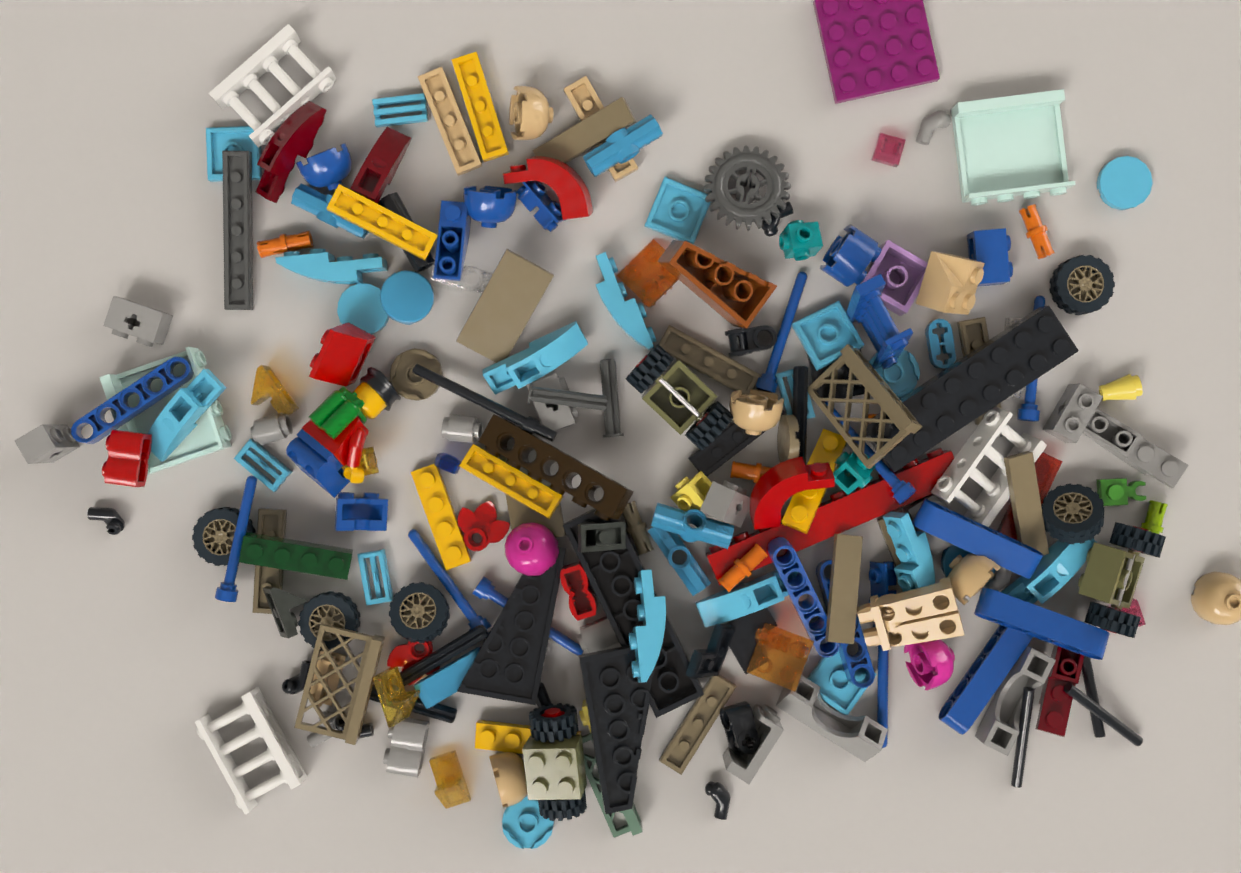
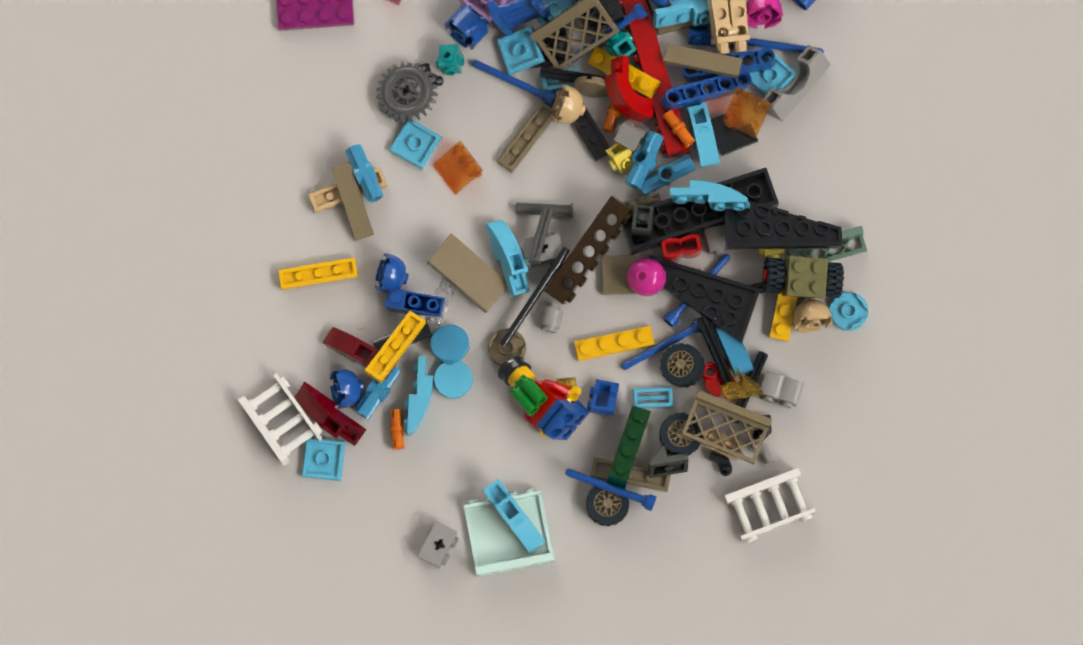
camera: 85 degrees left, 10 degrees down
(46, 443) = (520, 619): light grey brick -> none
(114, 522) = (582, 588): black arm -> none
(119, 402) = (494, 539): blue beam -> none
(127, 458) = (539, 557): red brick -> none
(237, 230) = (382, 462): dark grey tile -> none
(267, 386) = (499, 454): clear yellow slope -> none
(271, 428) = (532, 457): light grey brick -> none
(280, 479) = (552, 464): medium azure tile -> none
(341, 354) = (485, 392): red slope -> none
(377, 103) = (311, 316): medium azure tile -> none
(447, 462) = (575, 331): clear blue tile -> none
(449, 121) = (325, 297): tan plate -> none
(450, 780) = (810, 363): clear yellow slope -> none
(485, 523) = (623, 312): red plate -> none
(511, 481) = (595, 286): yellow plate -> none
(529, 113) = (329, 238): tan cylinder -> none
(534, 196) = (401, 235): blue hinge -> none
(564, 180) = (378, 222): red arch -> none
(626, 313) = (485, 189): medium azure slope -> none
(679, 397) = (551, 157): brick -> none
(697, 723) = (790, 179): dark tan tile -> none
(710, 660) = (742, 161): black tile -> none
(719, 283) = (474, 118): dark orange wedge -> none
(721, 797) = (846, 169): black arm -> none
(738, 726) = (794, 148): black piece -> none
(747, 765) = (808, 135): light grey panel -> none
(748, 340) = (516, 107): black piece -> none

